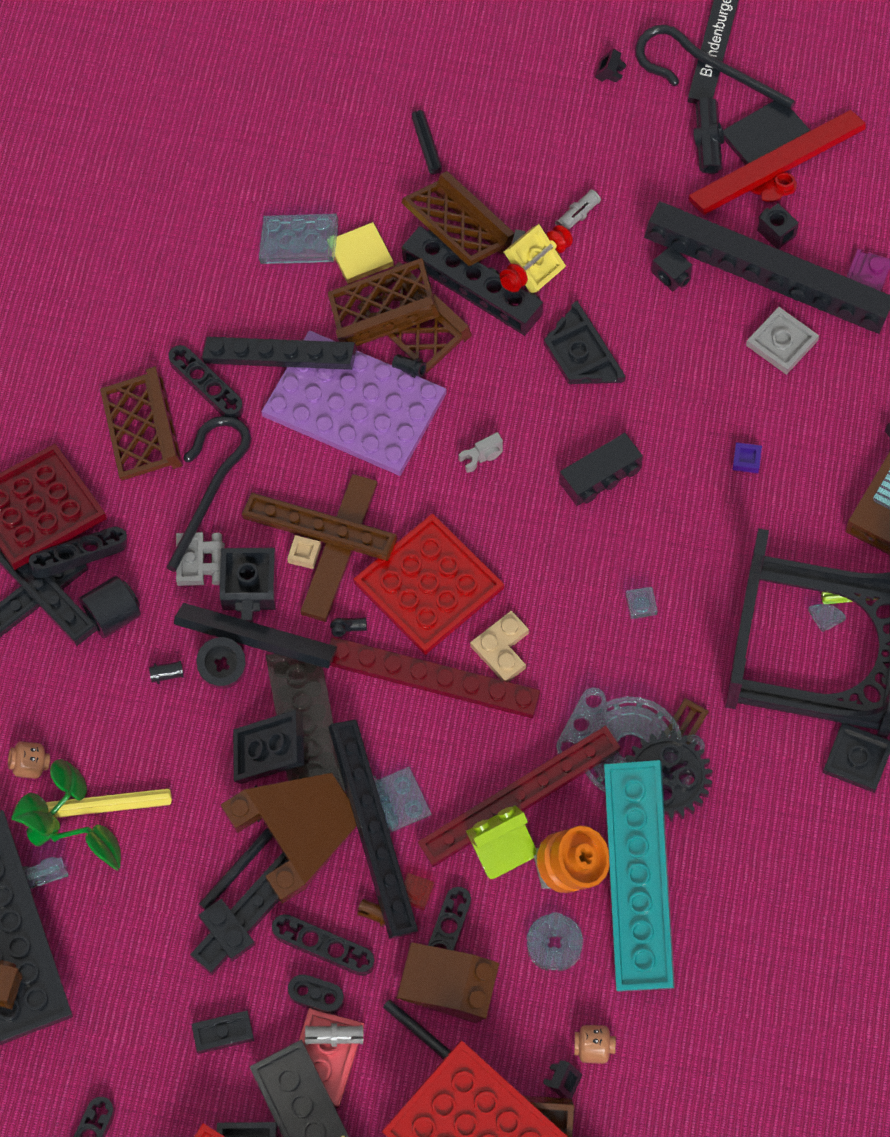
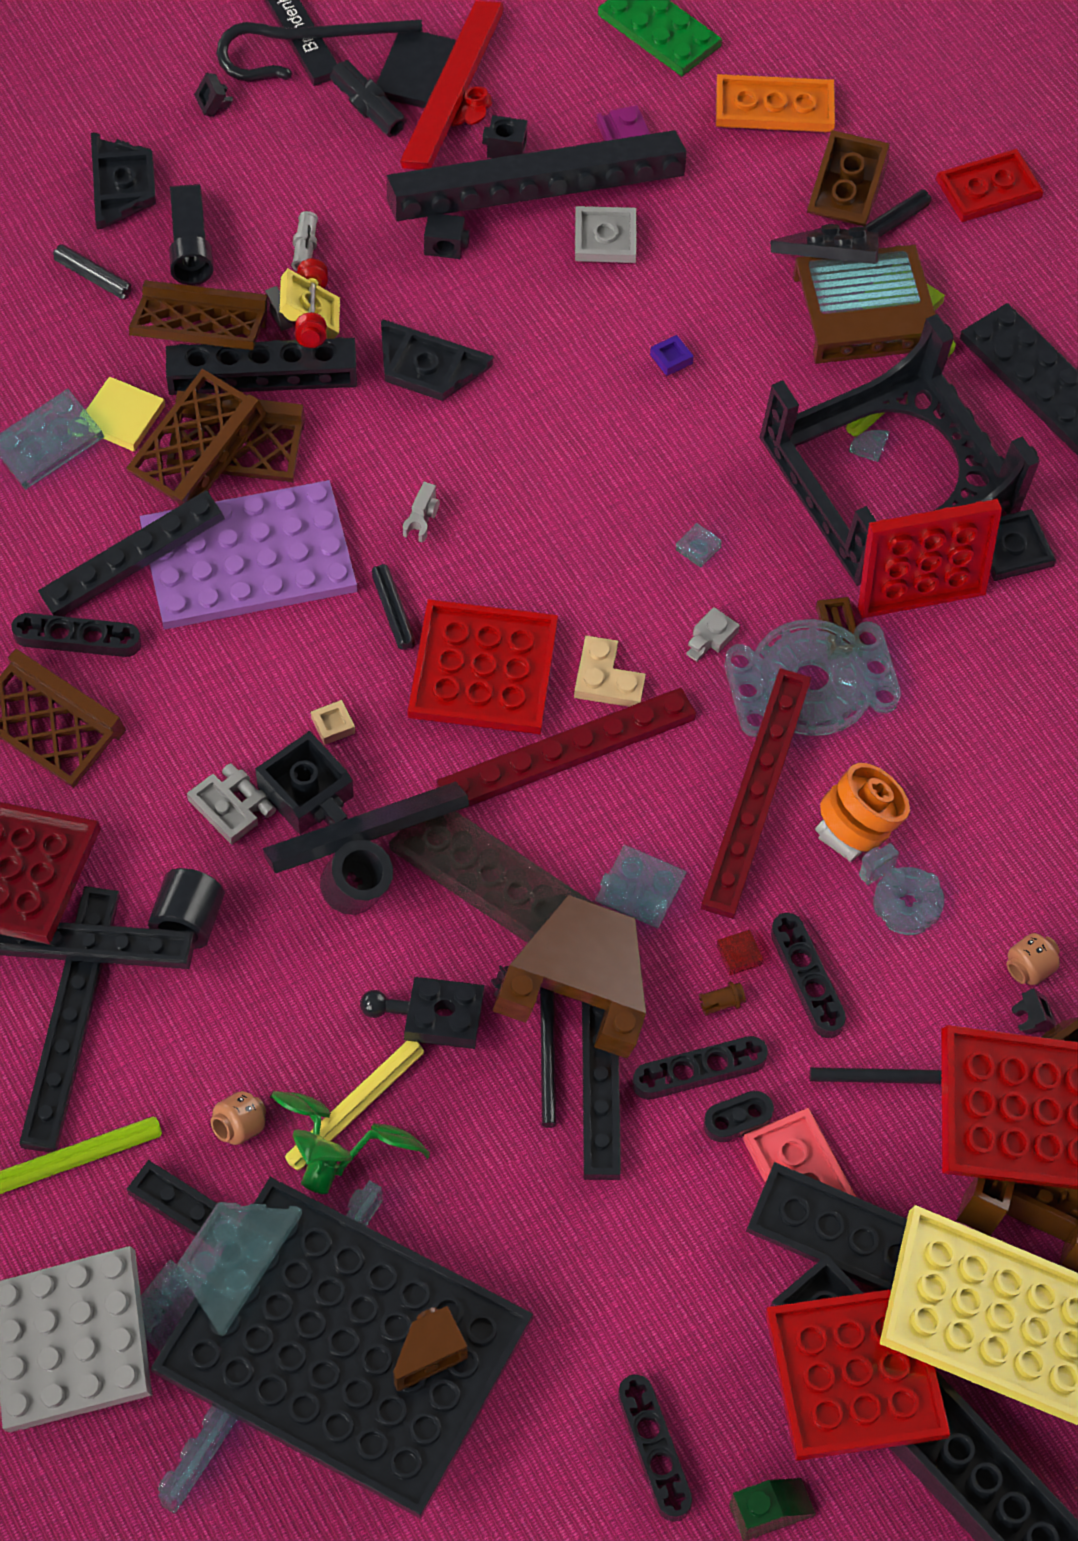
camera: 45 degrees left, 5 degrees down
(76, 549) = (94, 879): black beam -> none
(166, 671) = (294, 937): black pin -> none
(201, 771) = (422, 1020): none -> black plate
(216, 481) = (180, 716): black piece -> none
(222, 1032) = (683, 1222): black plate -> none
(226, 930) = (600, 1121): black plate -> none
(268, 746) = (479, 920): black plate -> none
(319, 526) = (325, 687): reddish brown tile -> none
(333, 1034) = (796, 1136): light grey pin -> none
(334, 558) = (362, 696): reddish brown tile -> none
(340, 626) = (437, 762): black arm -> none
(373, 829) = (653, 918): black tile -> none
(410, 502) = (393, 607): none -> black axle
(415, 367) = (274, 482): black pin -> none
(448, 981) = (856, 1003): reddish brown slope -> none
(497, 167) = (189, 253): none -> black beam
(498, 89) = (121, 180): none -> black wing
(502, 842) = (782, 841): lime bracket -> none
(554, 902) = (877, 862): none -> clear light blue plate
(597, 668) = (711, 632): none -> light grey plate
(601, 469) = (550, 454): black brick -> none
(639, 876) = (936, 777): teal plate -> none
(683, 795) = (906, 682): black gear -> none
(767, 724) = (928, 558): none -> red plate

